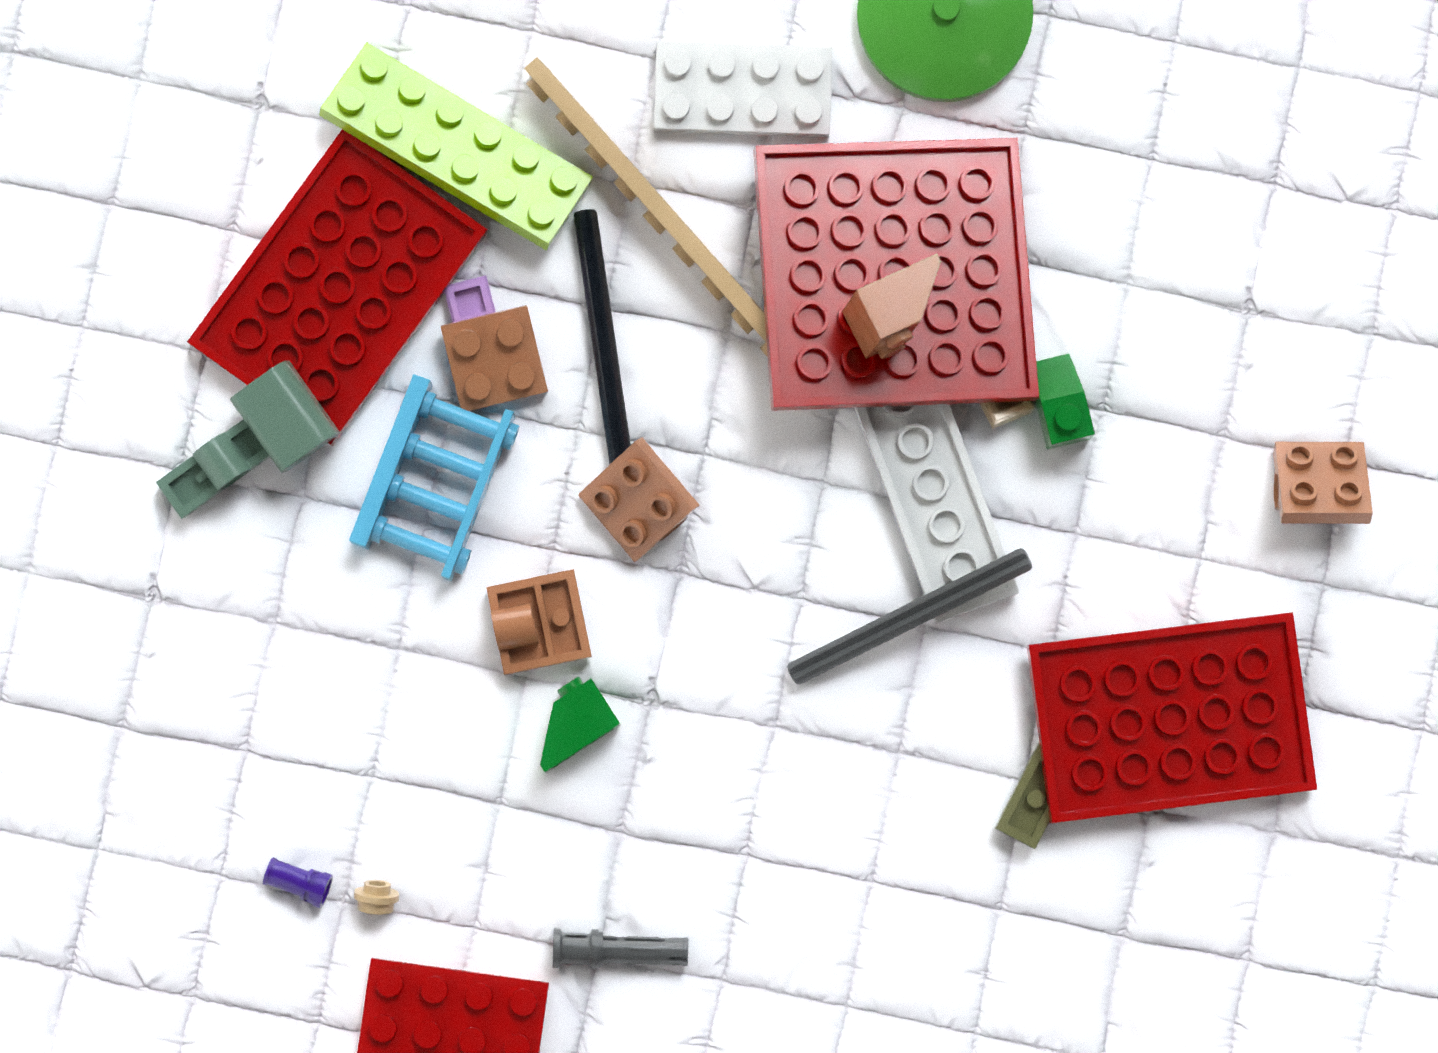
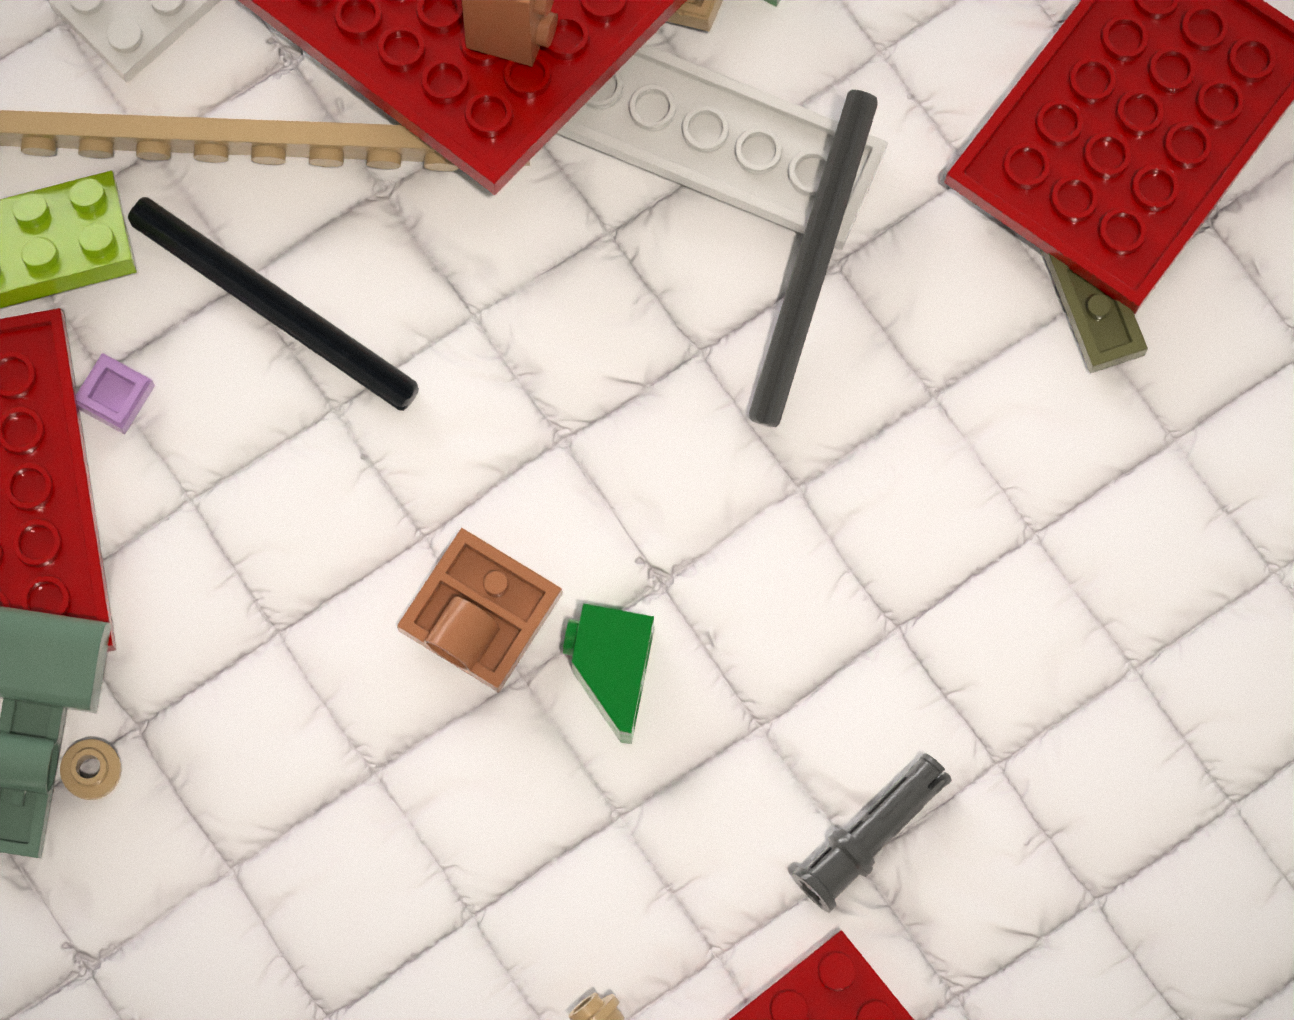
camera: 40 degrees left, 10 degrees down
(265, 508) = (103, 782): none -> tan plate
(406, 444) = (210, 626): medium azure fence -> none
(494, 358) = (187, 417): nougat plate -> none
(638, 499) = (456, 404): nougat plate -> none

